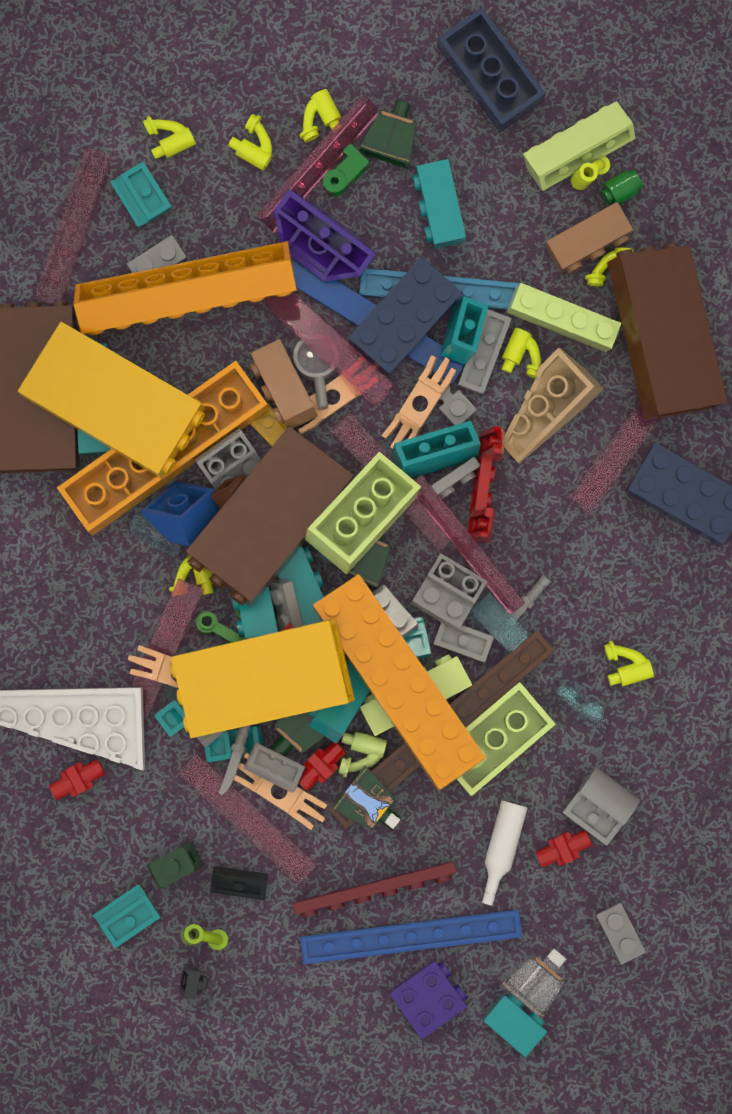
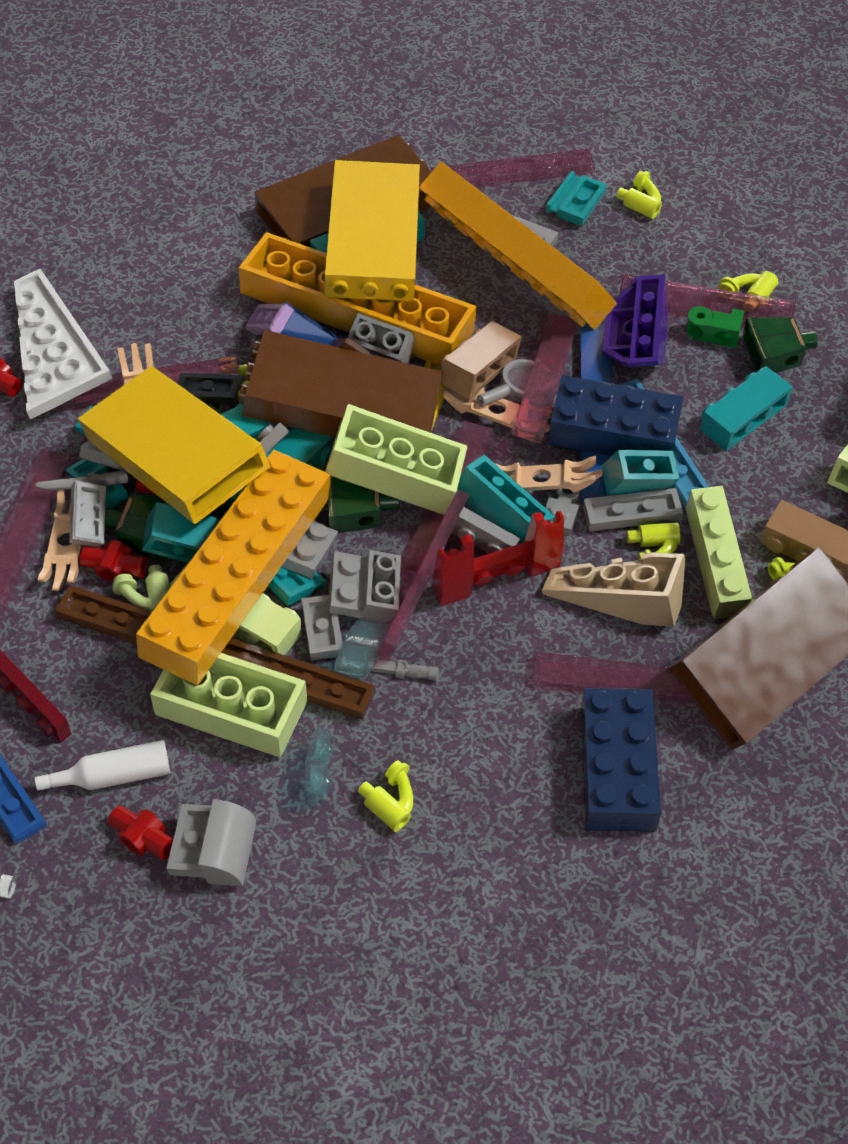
camera: 60 degrees right, 30 degrees down
(157, 534) = (269, 317): none -> lavender tile
(204, 619) = (212, 387): none -> black plate
(250, 152) = (676, 254): neon yellow plant -> none
(367, 801) = (95, 606): torso -> none
(620, 933) = (68, 947): light grey plate -> none

